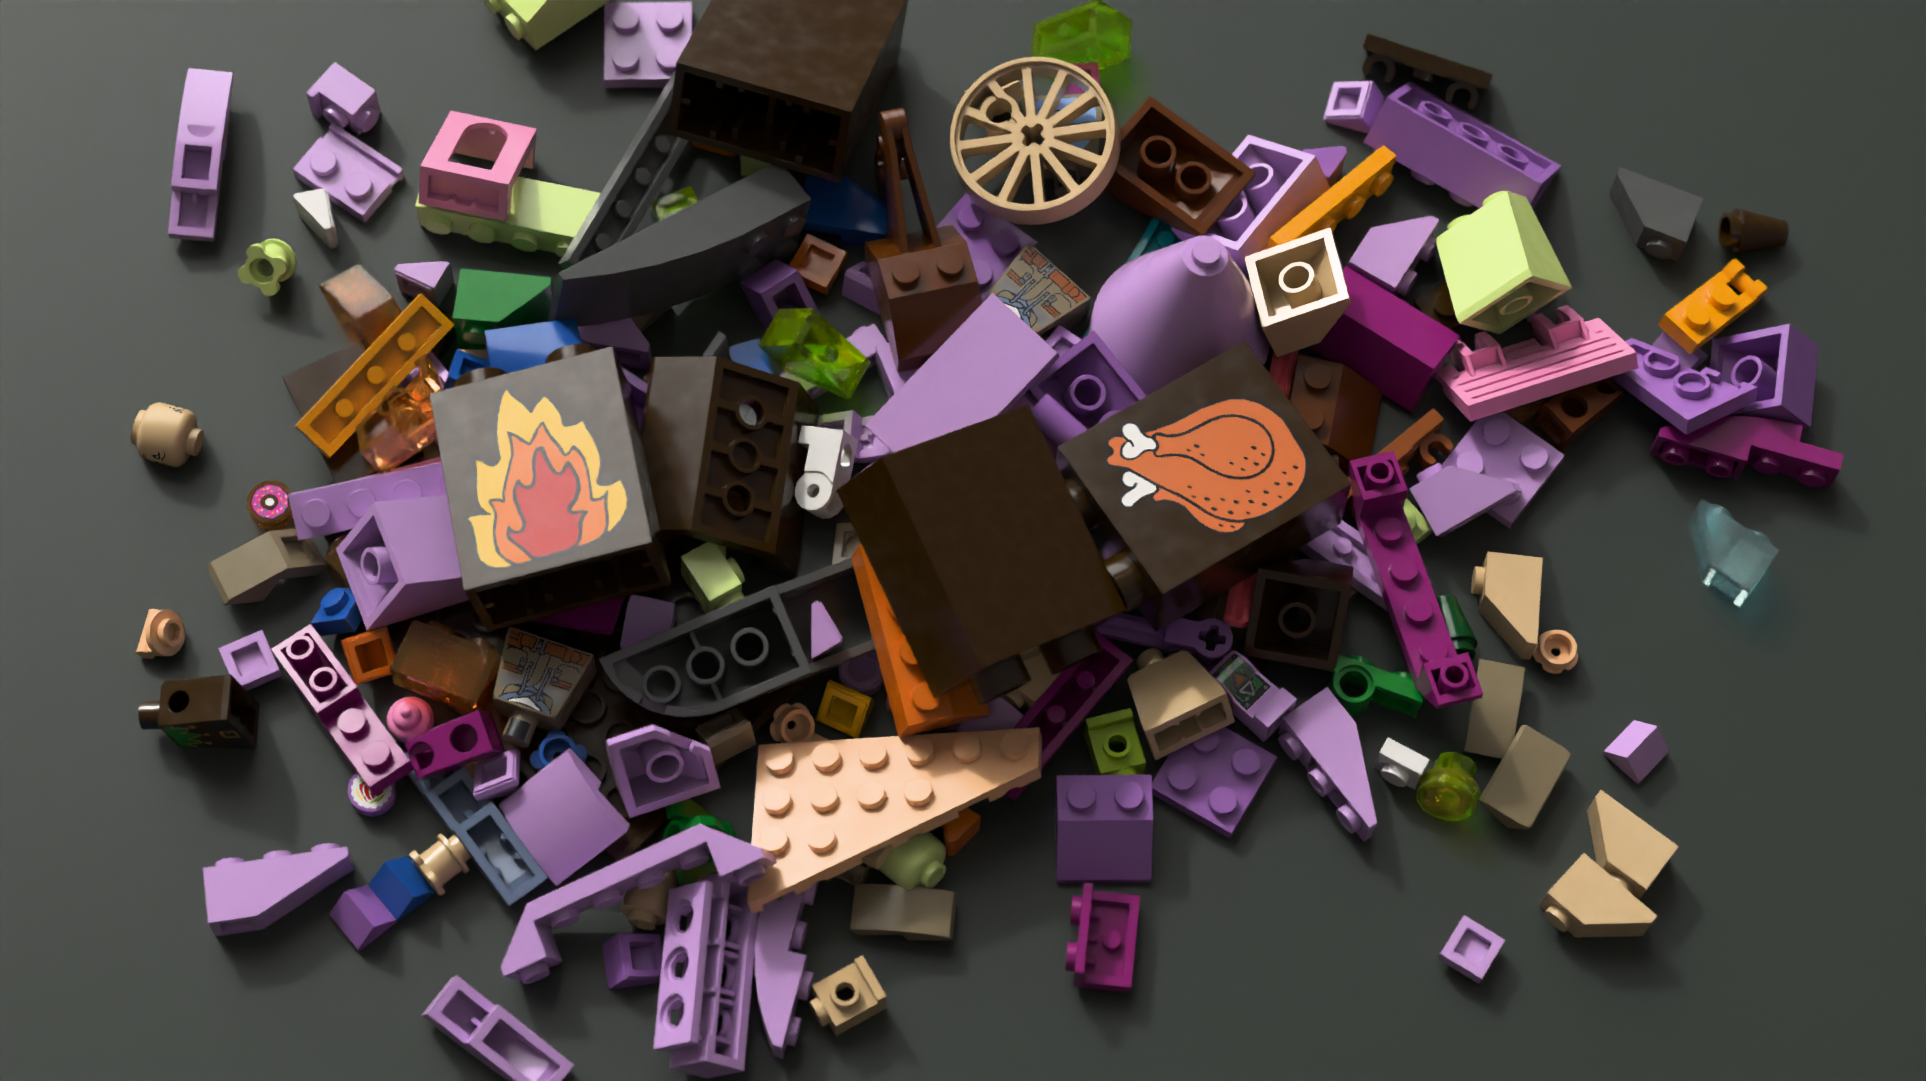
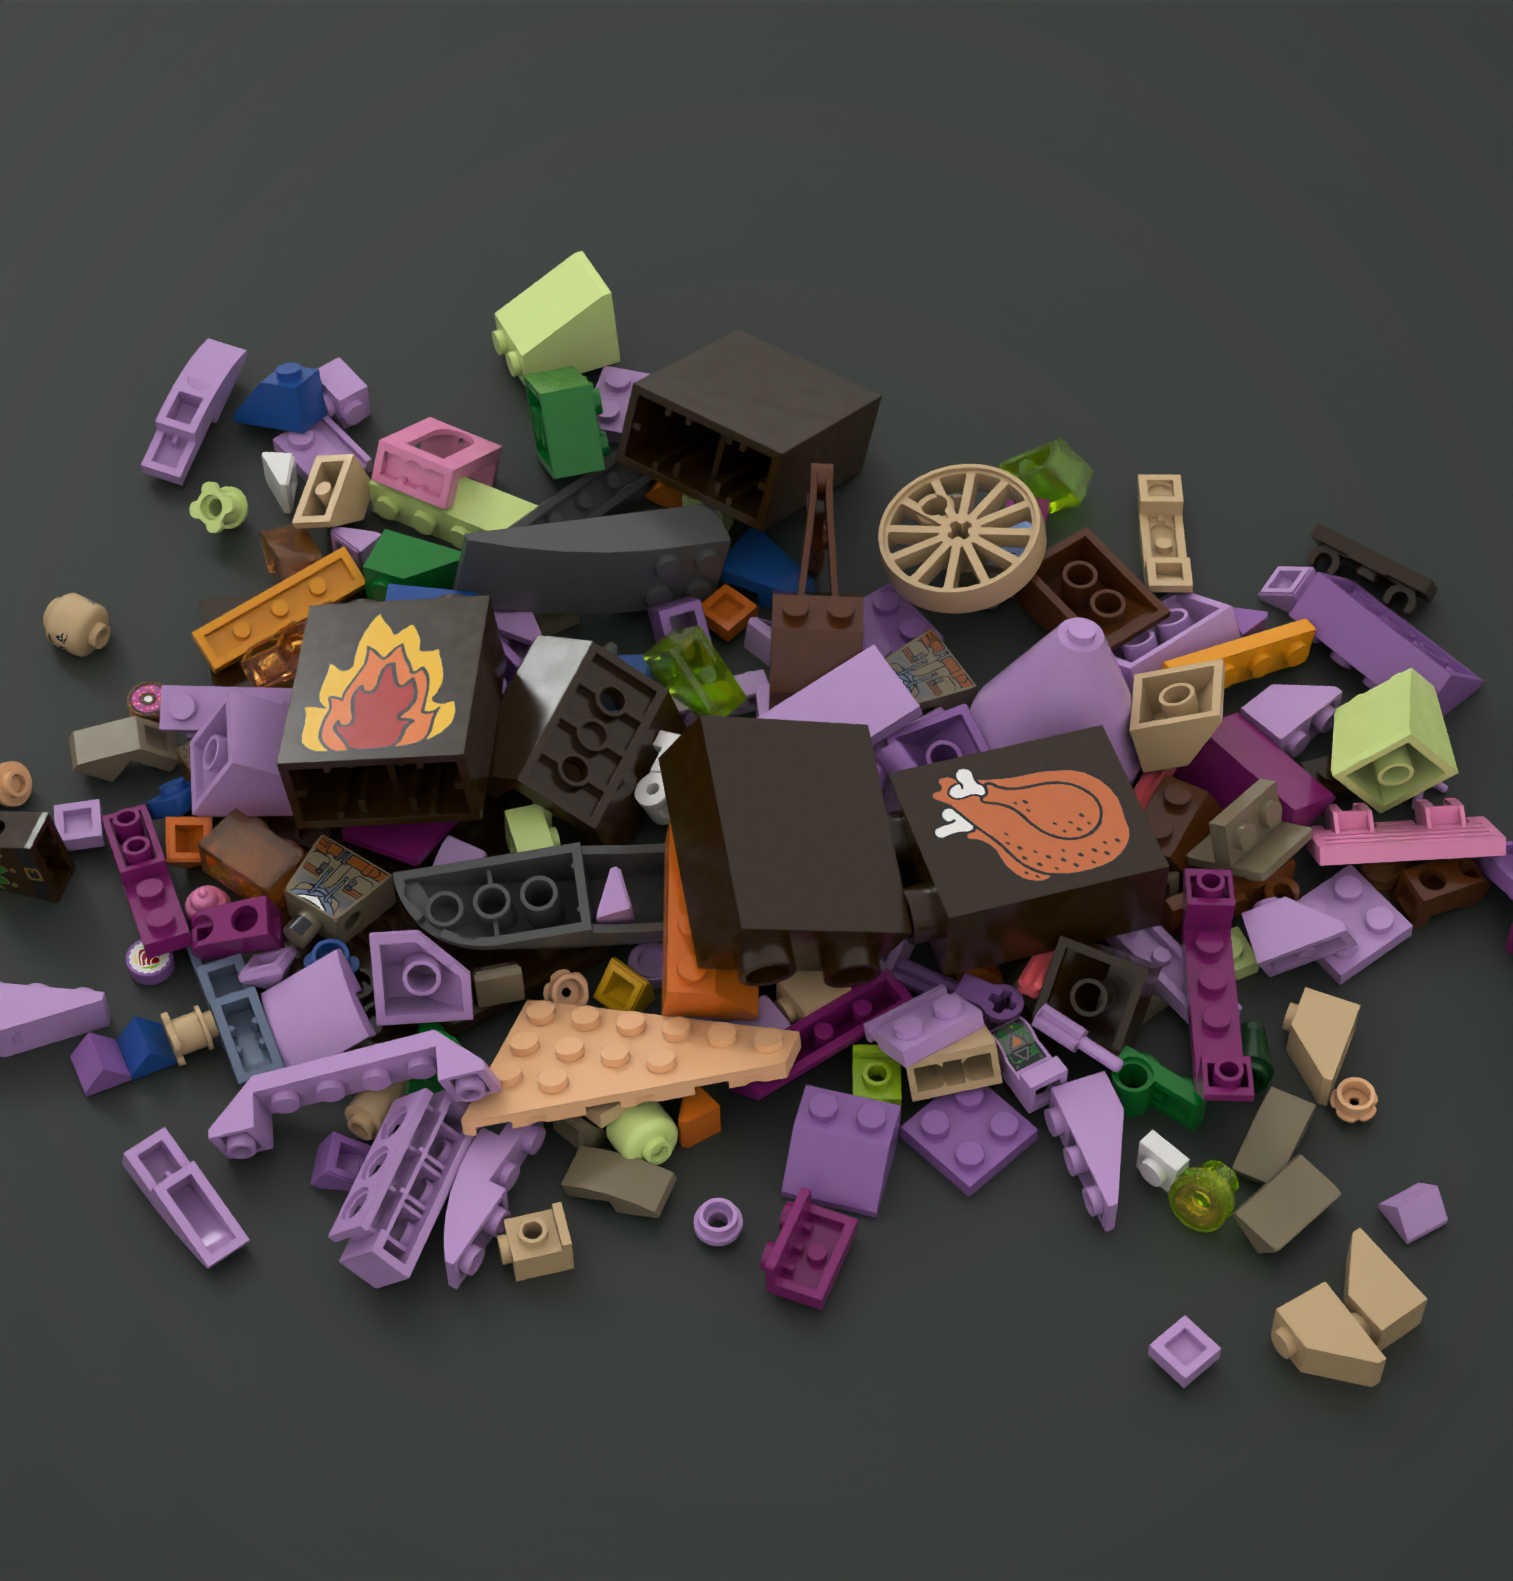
camera: 20 degrees right, 15 degrees down
(294, 126) = (285, 400): none -> blue slope
(383, 228) = (334, 493): none -> tan slope
(600, 95) = (565, 422): none -> green brick
(1008, 915) = (718, 1210): none -> lavender plate
(1150, 687) = (924, 1025): none -> lavender plate
(1216, 78) = (1162, 534): none -> tan slope
(1290, 661) = (1073, 1036): none -> lavender axle
(1399, 408) = (1251, 836): none -> dark tan bracket

